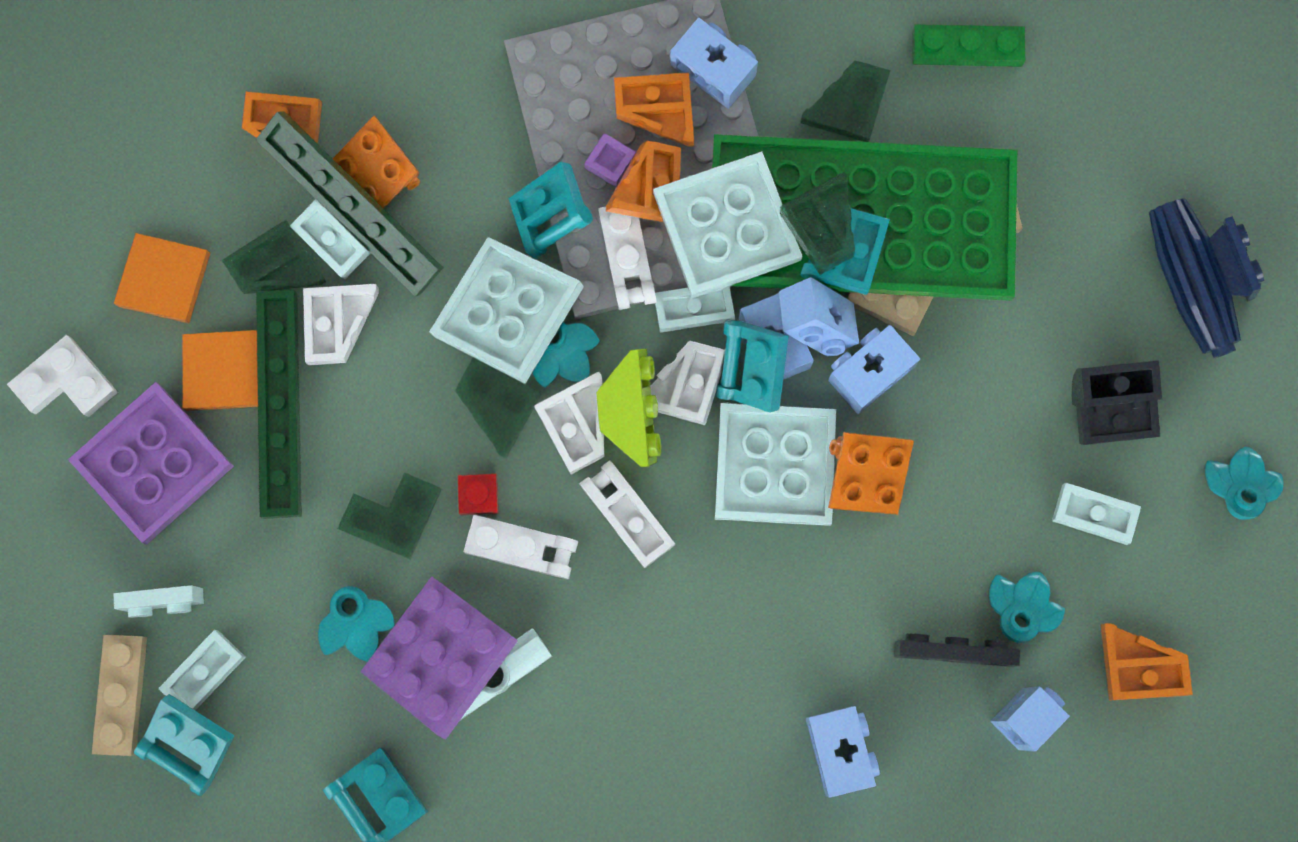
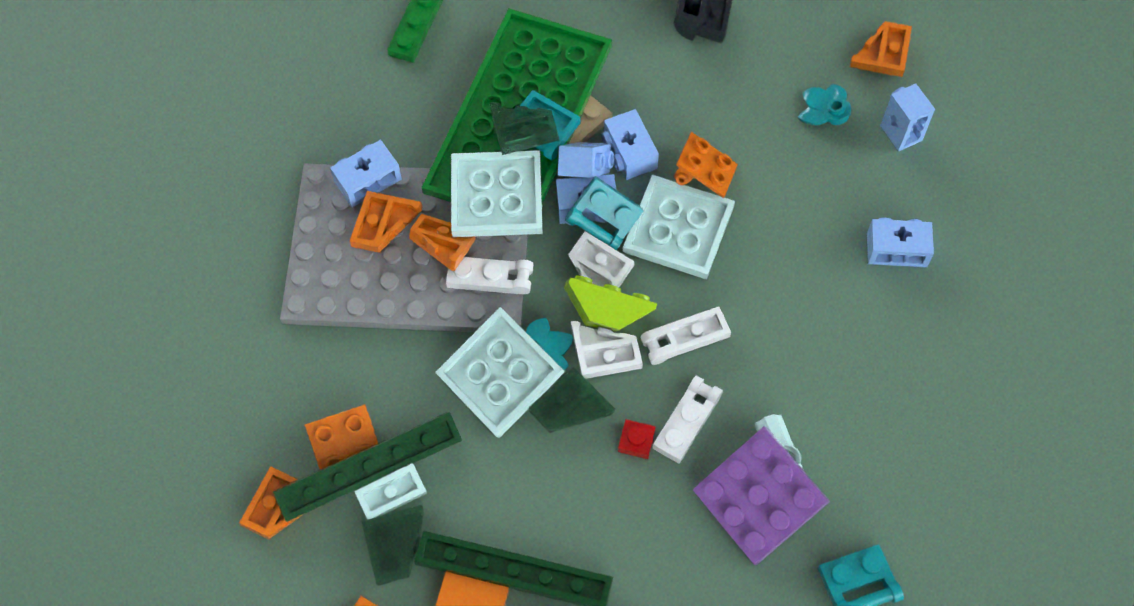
camera: 75 degrees left, 15 degrees down
(335, 320) = (459, 508): white wing -> none
(354, 630) = (718, 560): teal plate -> none
(394, 527) = (644, 504): clear green plate -> none
(542, 201) = (422, 318): teal plate -> none
(609, 160) = (411, 263): medium lavender plate -> none
(679, 311) = (543, 247): light aqua plate -> none
(850, 103) = (428, 103): clear green wing -> none
(957, 650) = (846, 151): black plate -> none
(1096, 513) = (774, 45): light aqua plate -> none

